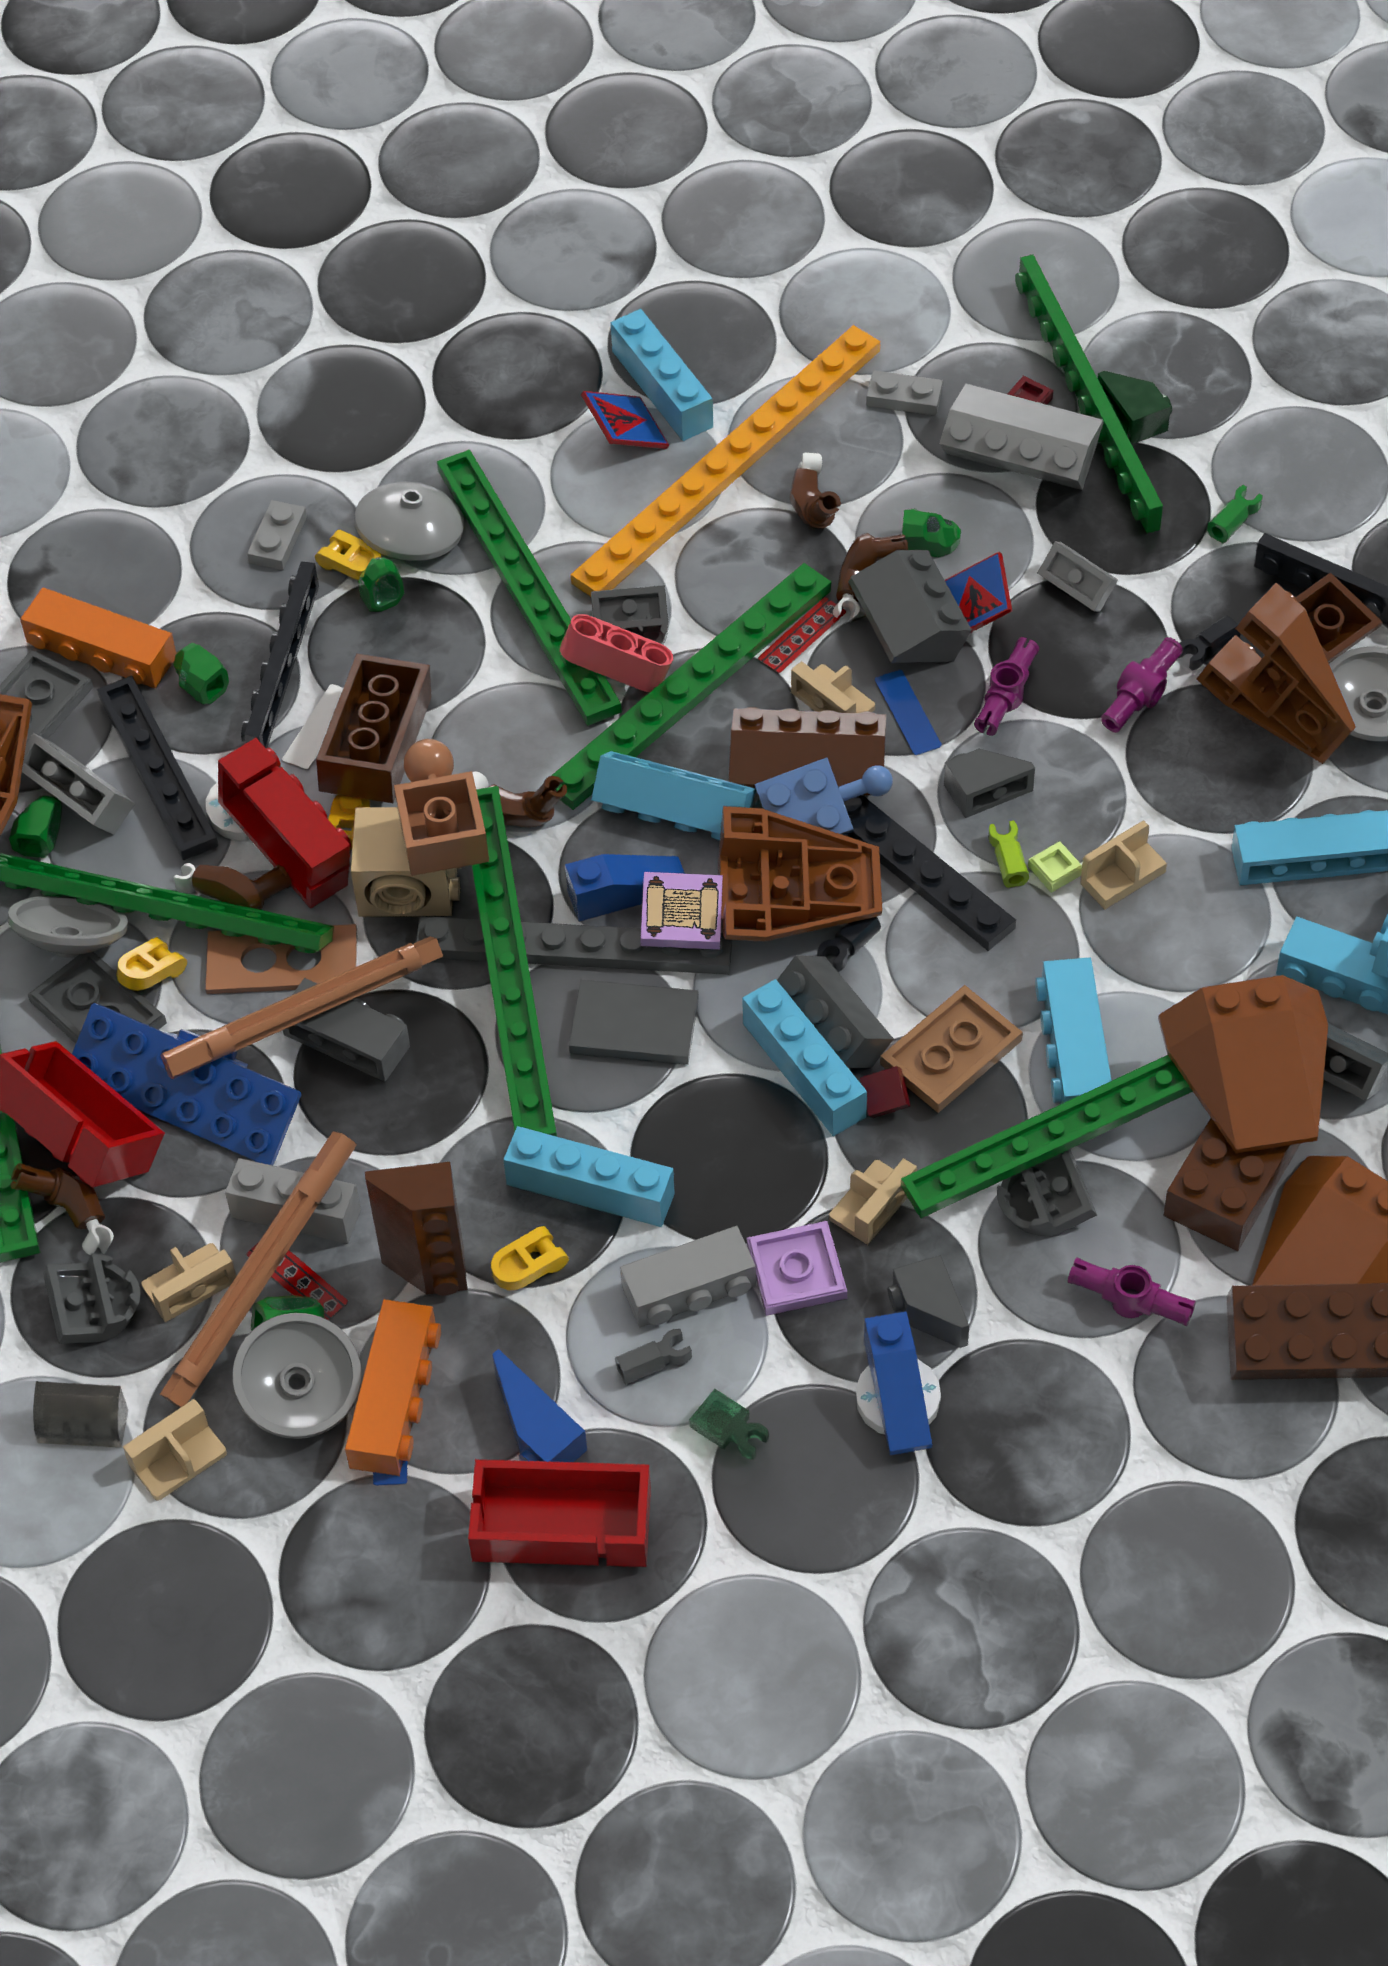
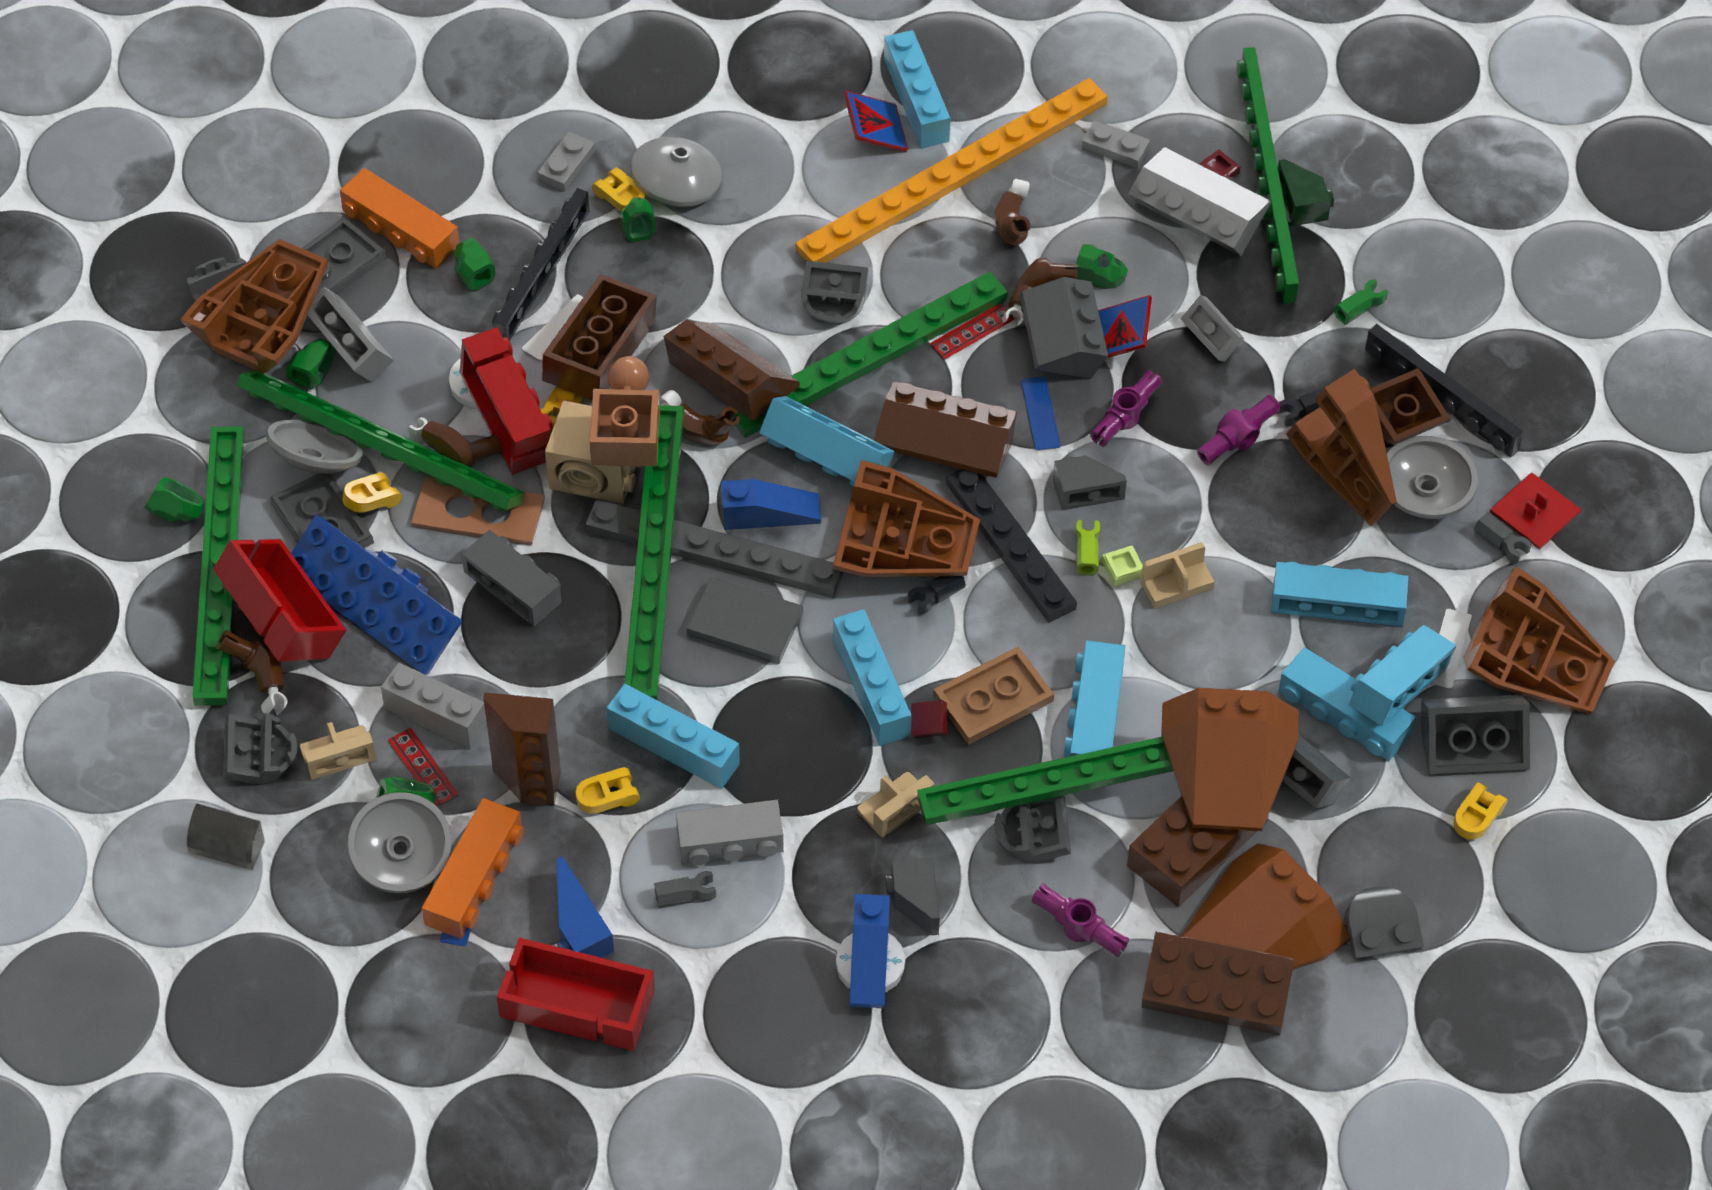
camera: 10 degrees right, 0 degrees up
(157, 768) = (419, 334): black plate -> none
(174, 1450) = (291, 880): tan panel -> none
(258, 1269) = (390, 753): nougat piece -> none
(299, 1007) = (478, 552): nougat piece -> none
(525, 582) = (758, 246): green plate -> none
(533, 732) = (727, 367): none -> reddish brown slope
(615, 652) = (812, 315): coral beam -> none
(681, 910) = (805, 538): tile -> none
(725, 1421) = (727, 951): clear green plate -> none
(797, 1268) = (819, 844): lavender tile -> none
(814, 796) = (940, 468): medium blue plate -> none
(828, 690) = (980, 382): tan panel -> none
(835, 1010) = (906, 645): dark grey brick -> none

